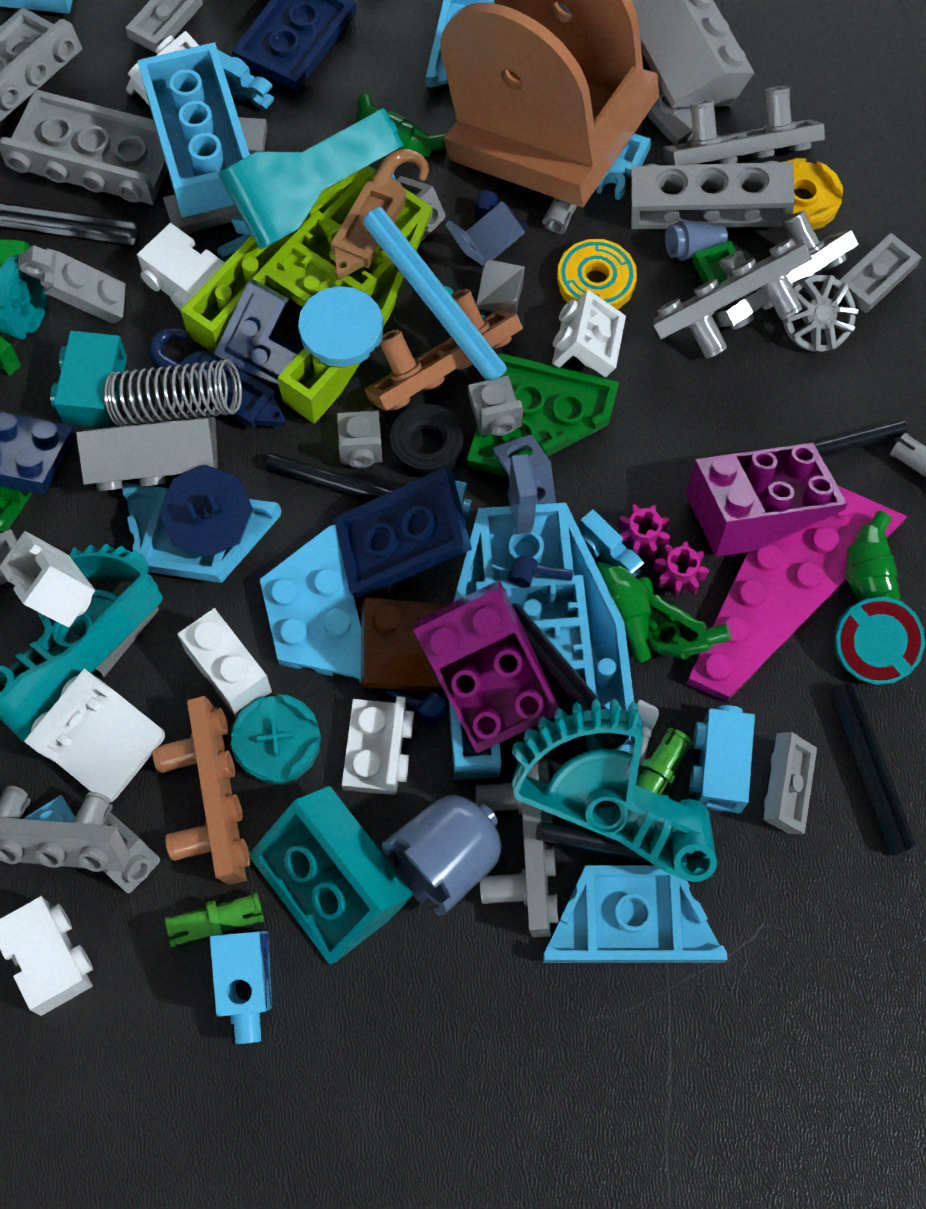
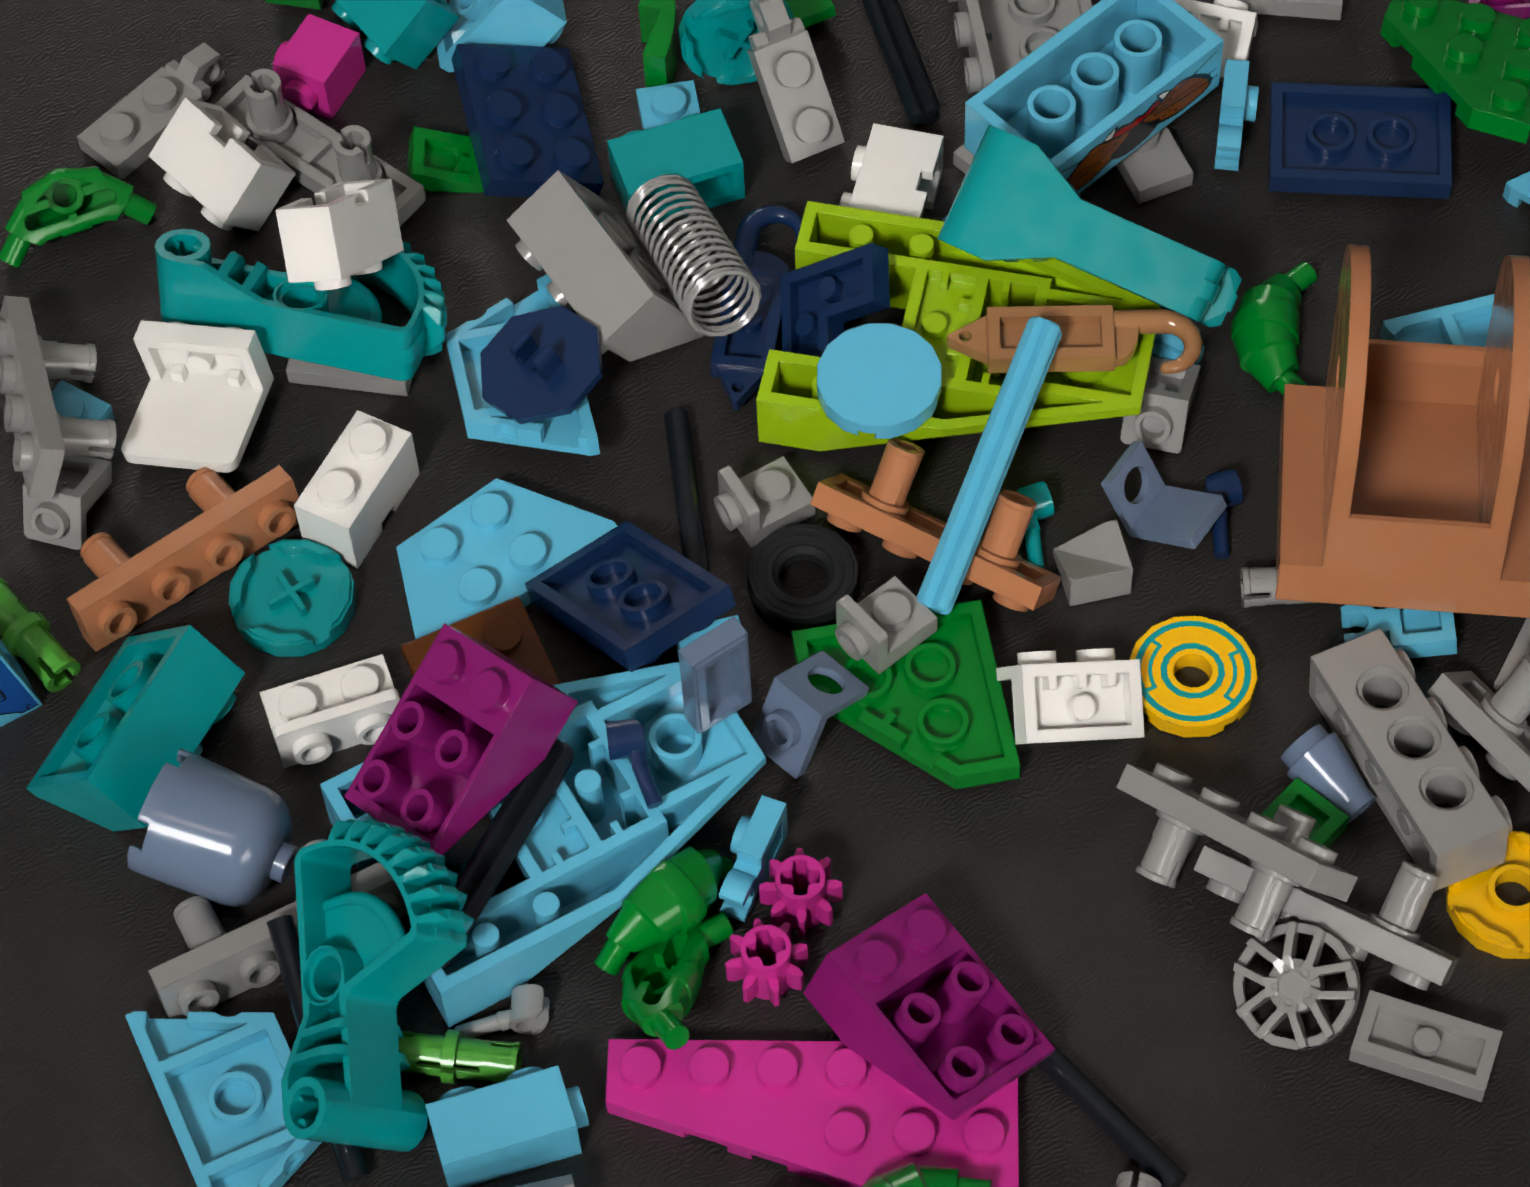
camera: 70 degrees right, 10 degrees down
(37, 368) = (666, 103): none -> medium azure plate

